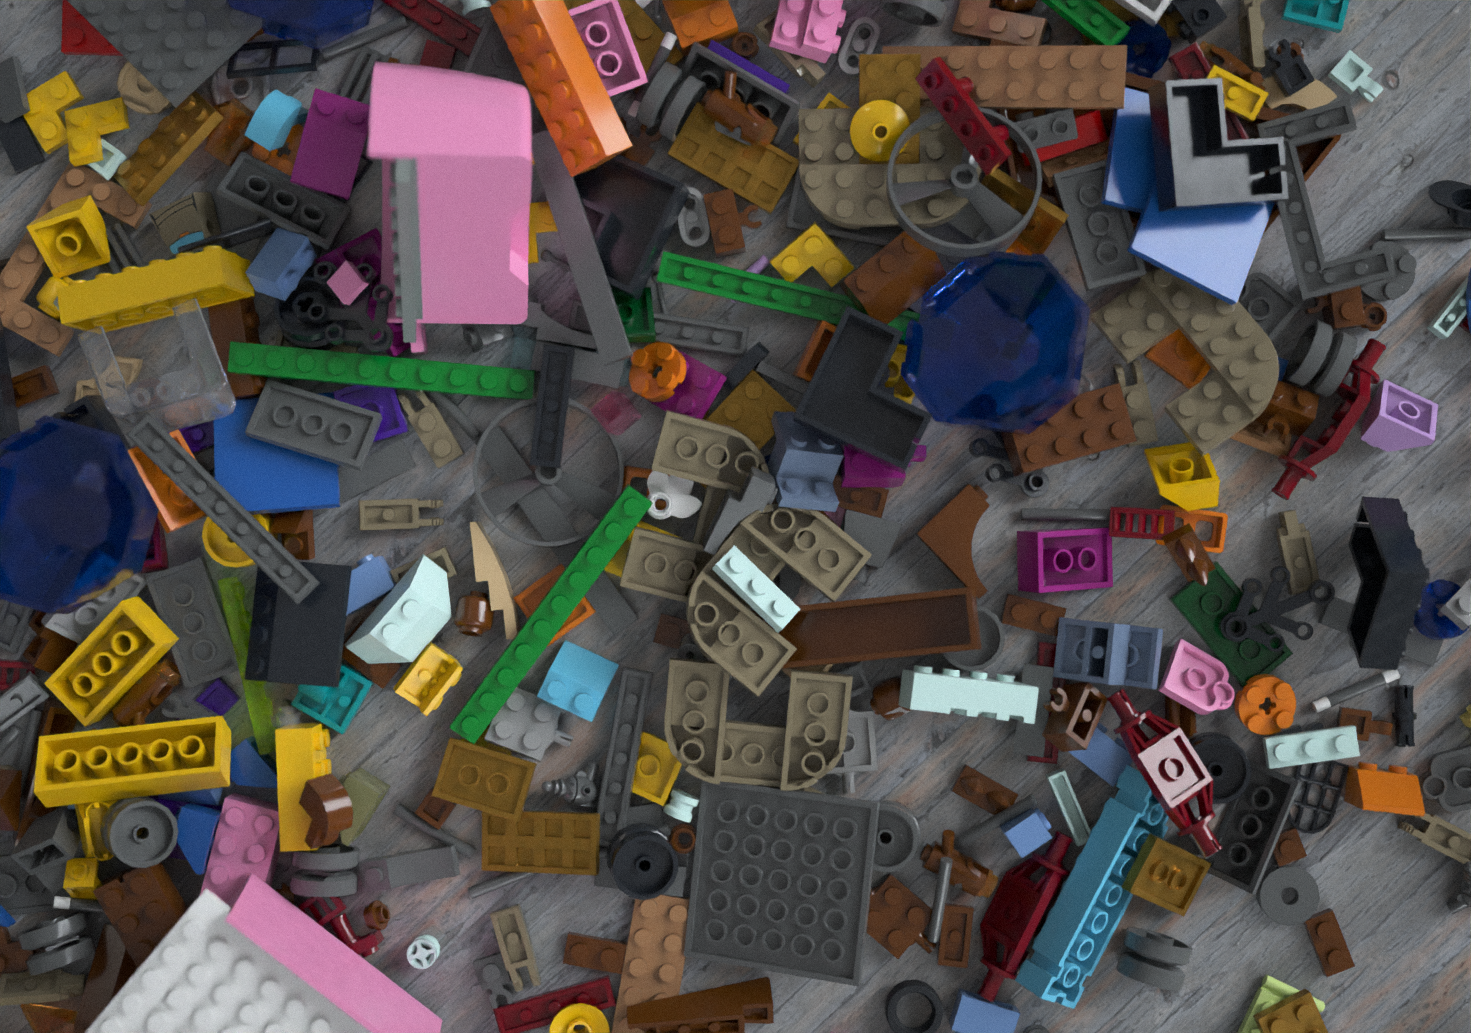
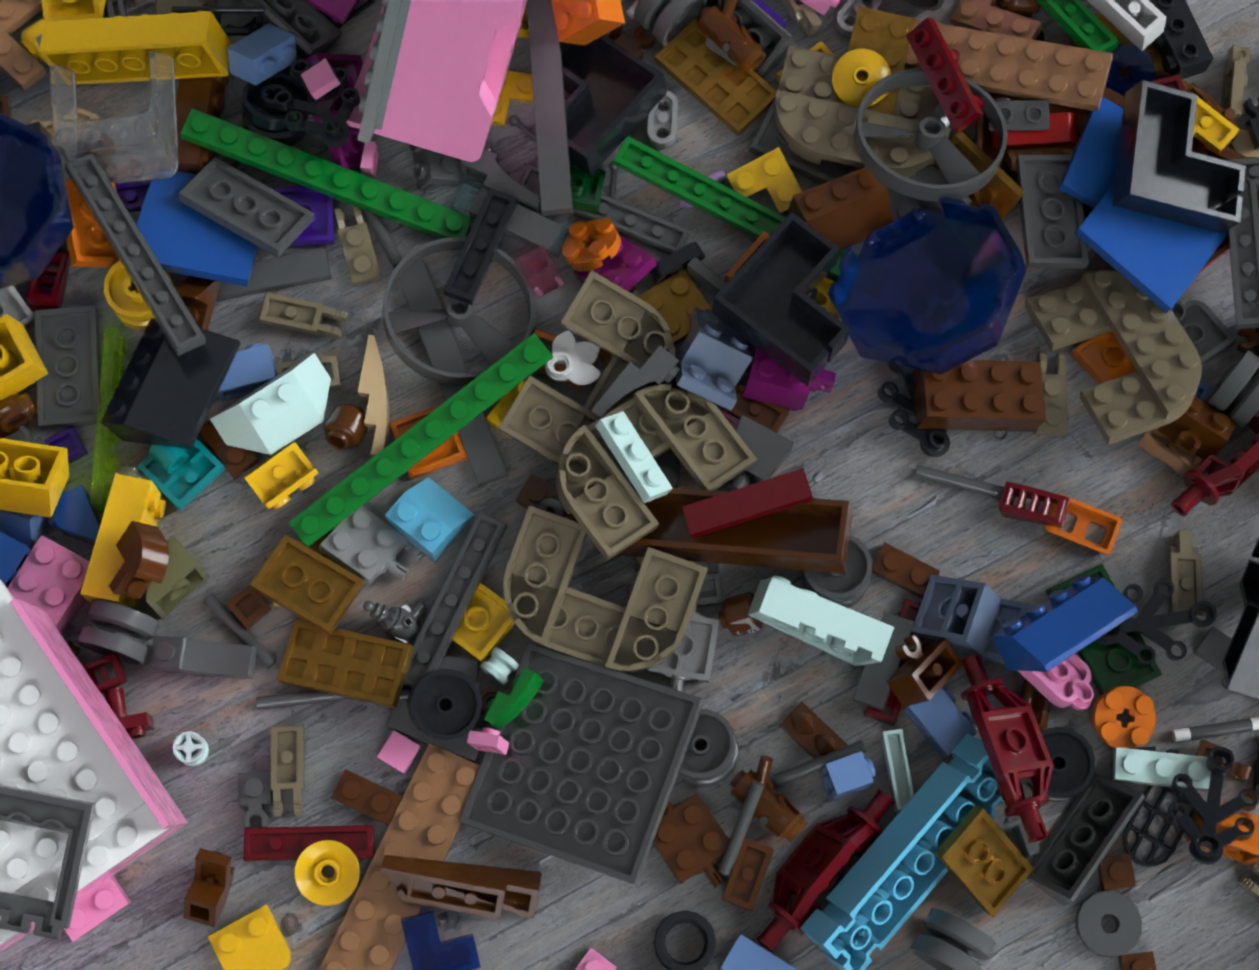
camera: 10 degrees right, 15 degrees down
(376, 915) = (154, 699): reddish brown plate -> none
(611, 905) = (399, 752): none -> bright pink tile
(691, 882) = (488, 741): none -> bright pink plate
(699, 845) = (504, 707): none -> green slope
(727, 222) = (695, 129): reddish brown brick -> none
(875, 610) = (747, 503): none -> dark red tile
(951, 534) = (842, 462): reddish brown arch -> none
(1064, 559) = (948, 521): magenta slope -> none
(1184, 476) = (1088, 471): yellow slope -> none
(1189, 554) = (1075, 543): reddish brown tile -> none
(1196, 646) = (1062, 624): none -> blue slope
(1365, 785) = (1211, 811): none -> black plant

